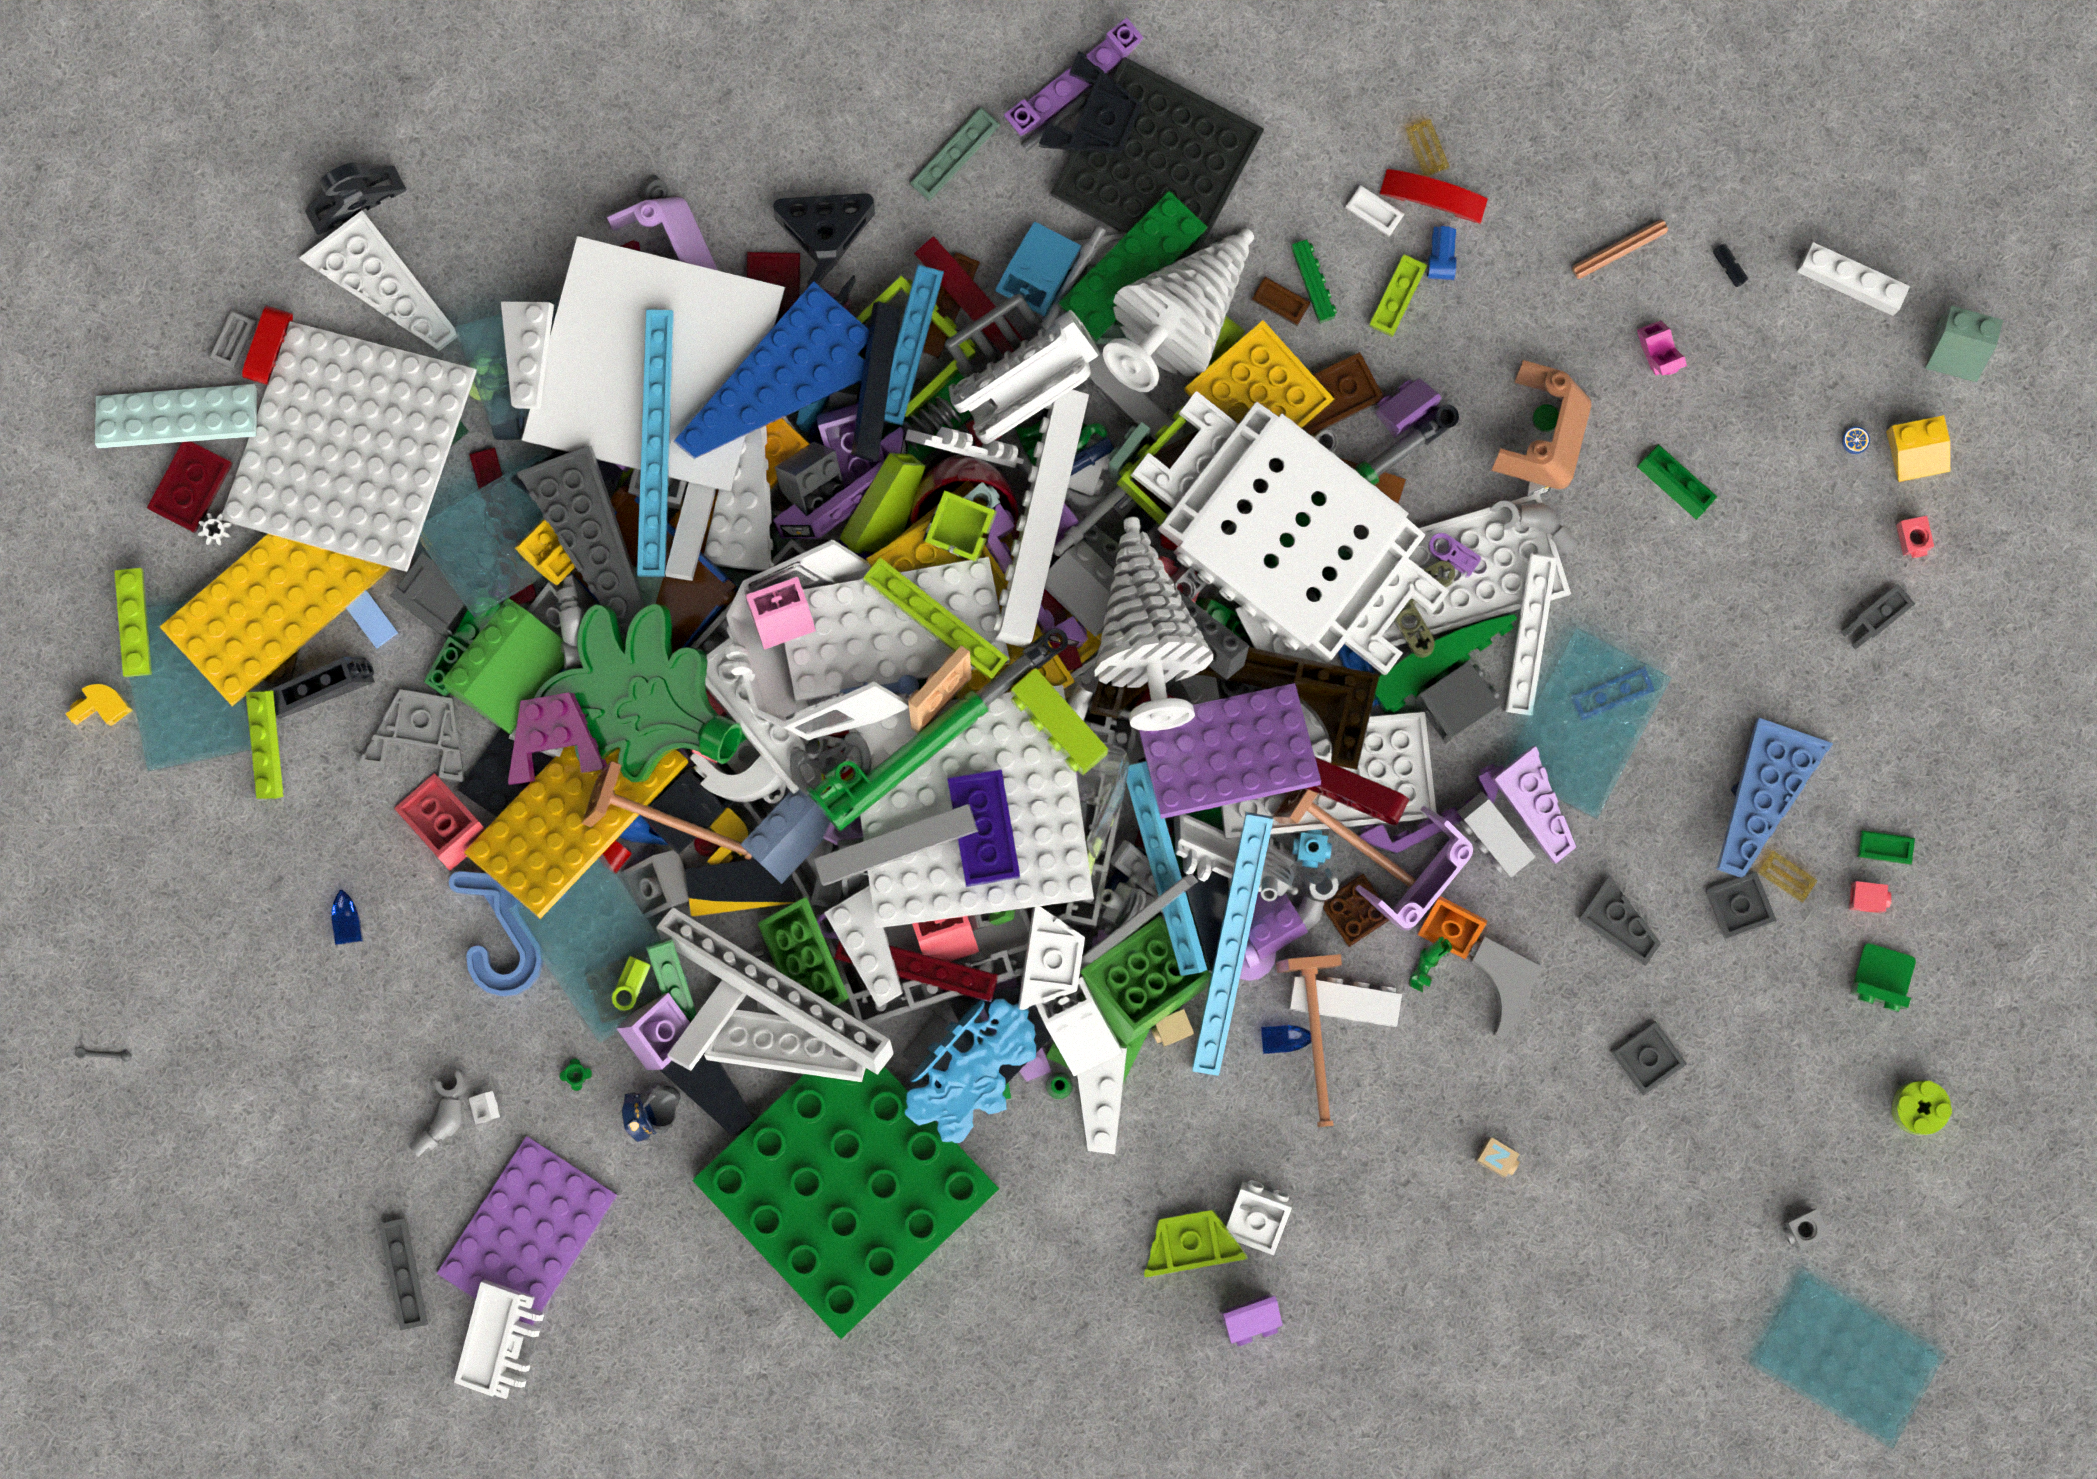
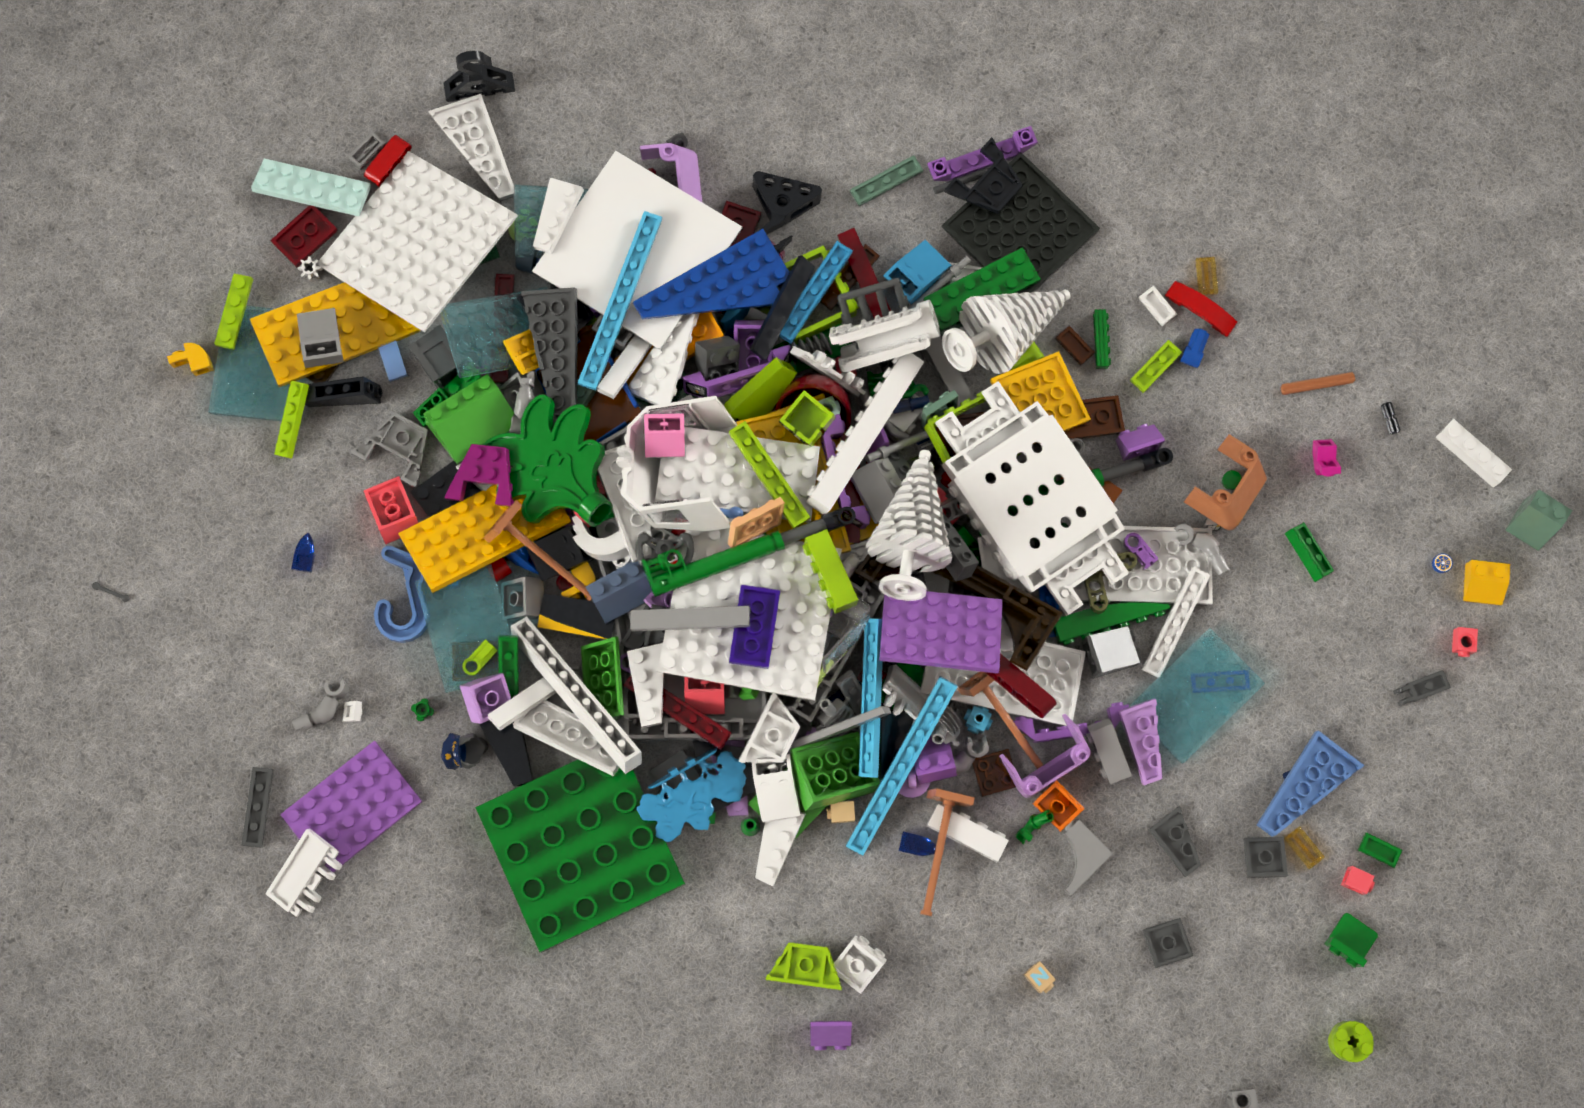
camera: 20 degrees right, 5 degrees down
(265, 622) = (319, 338): none -> light grey slope

